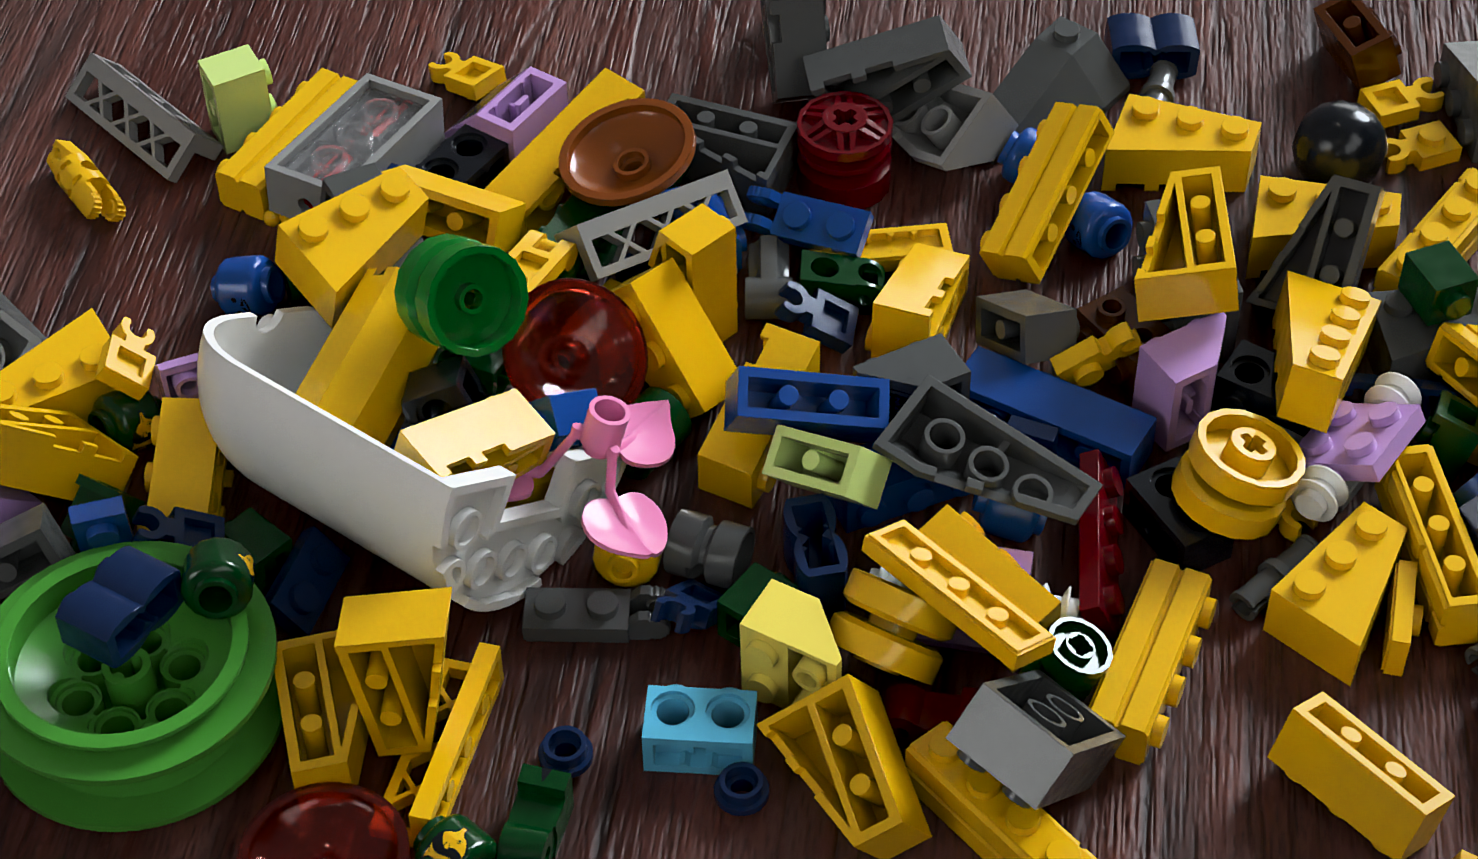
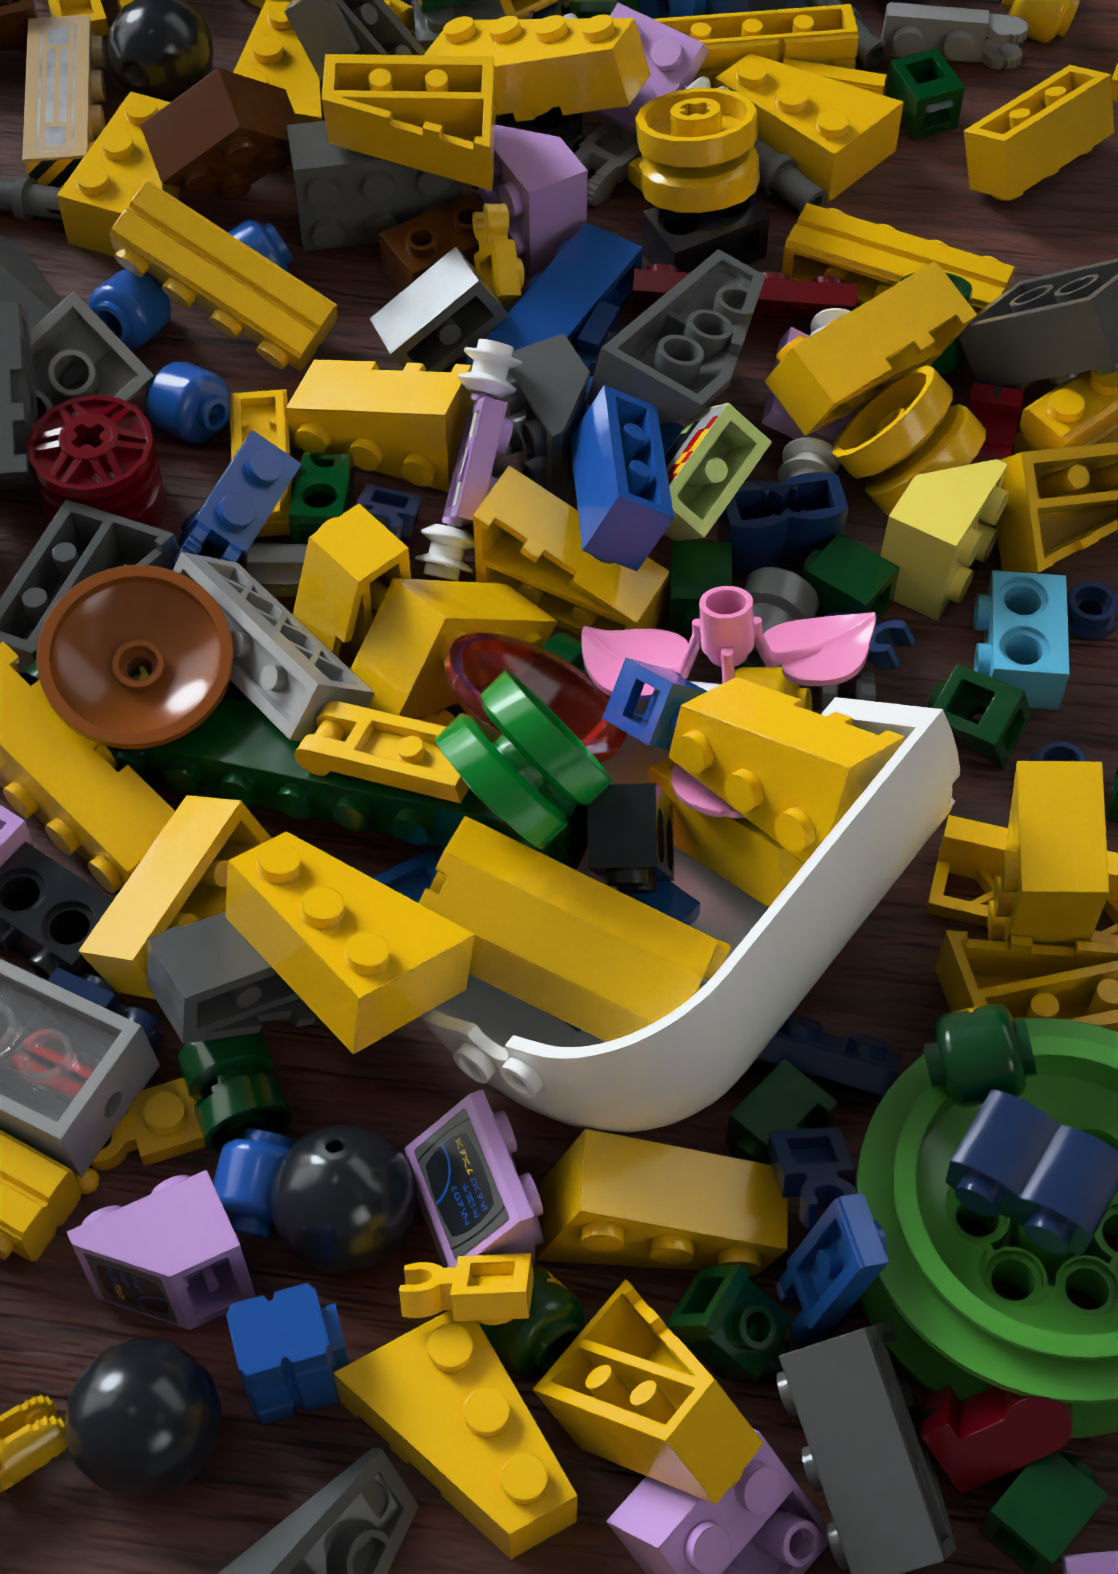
camera: 90 degrees left, 10 degrees up
(88, 236) = (142, 1419): none -> black piece
(112, 283) = (287, 1352): none -> blue brick
(189, 234) = (166, 1254): none -> lavender slope
(210, 295) = (343, 1199): none -> black piece
(613, 691) = (1002, 707): none -> dark green brick
(754, 503) = (693, 571): none -> dark green brick
(858, 332) = (482, 439): none -> plate
(934, 198) = (188, 402): none -> blue head
(959, 595) = (925, 343): yellow tile -> none
(1197, 145) = (221, 135): none -> reddish brown piece
(1270, 95) = (61, 96): none -> tan brick
(1414, 692) = (929, 93): none -> dark green brick

